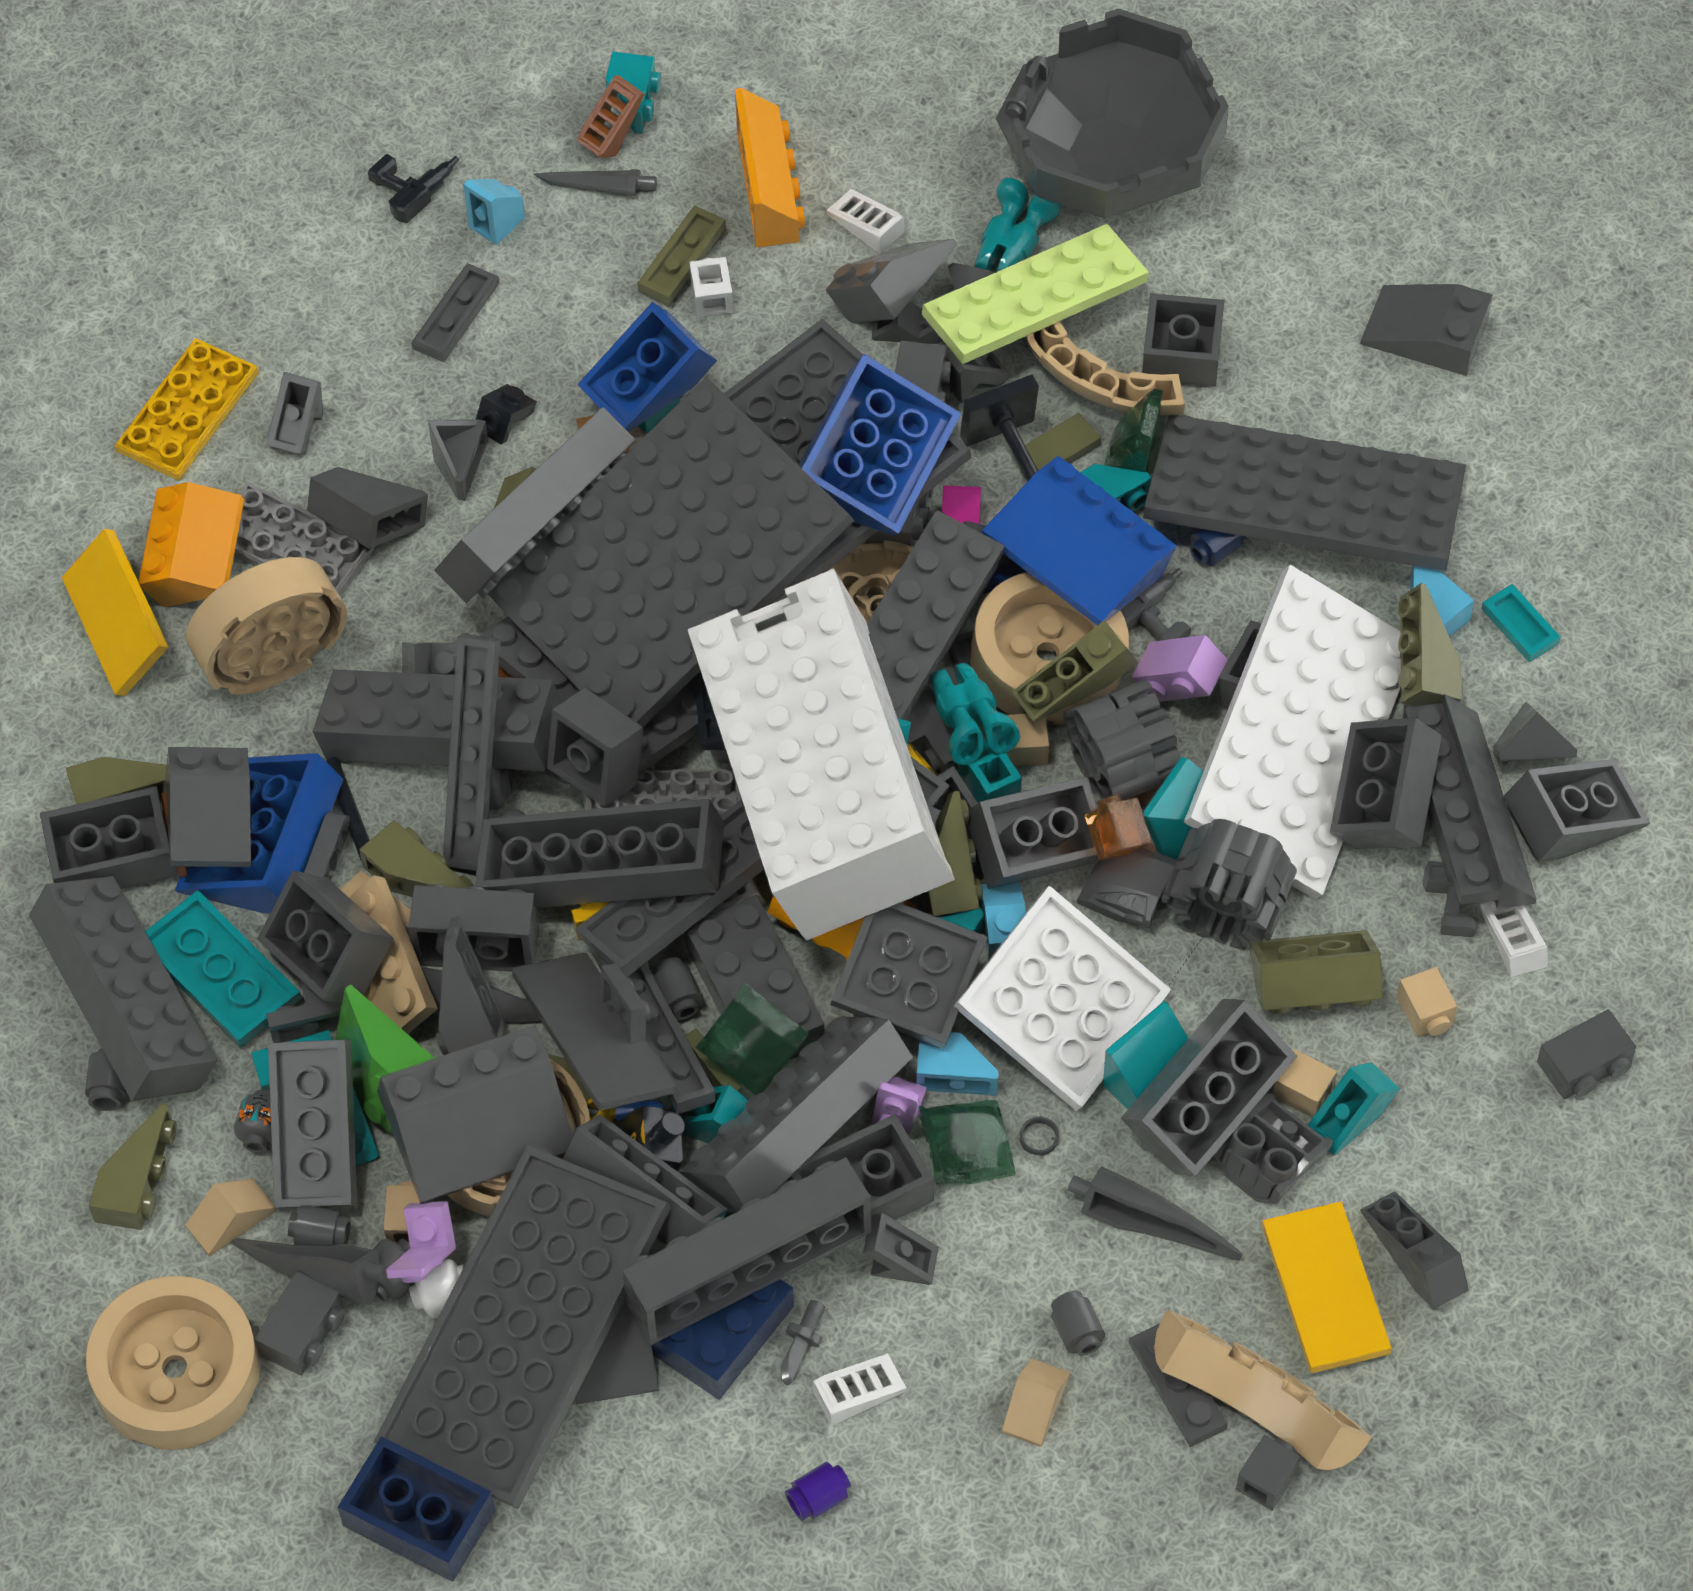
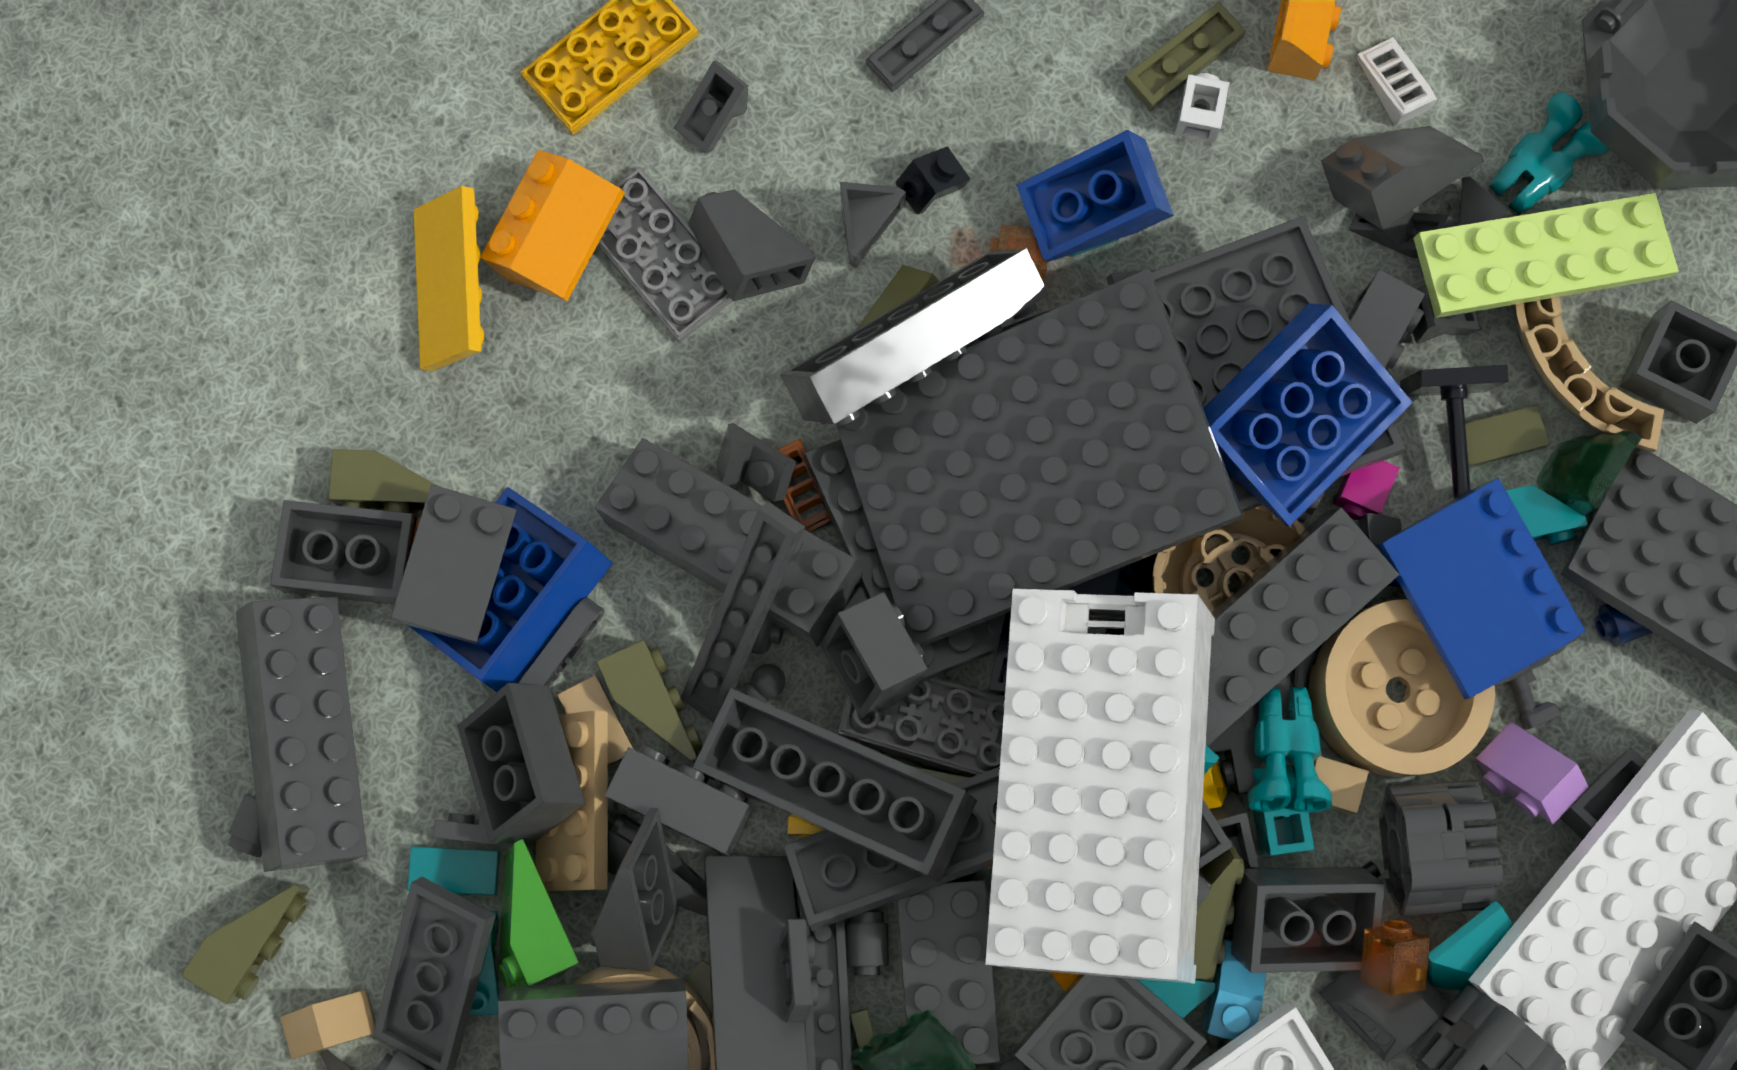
camera: 20 degrees right, 20 degrees up
(220, 968) = (411, 735): teal plate -> none
(254, 1122) = (382, 932): dark grey head -> none
(266, 625) = (584, 370): tan brick -> none
(349, 808) = (610, 594): black bar -> none
(1076, 673) = (1416, 754): olive slope -> none

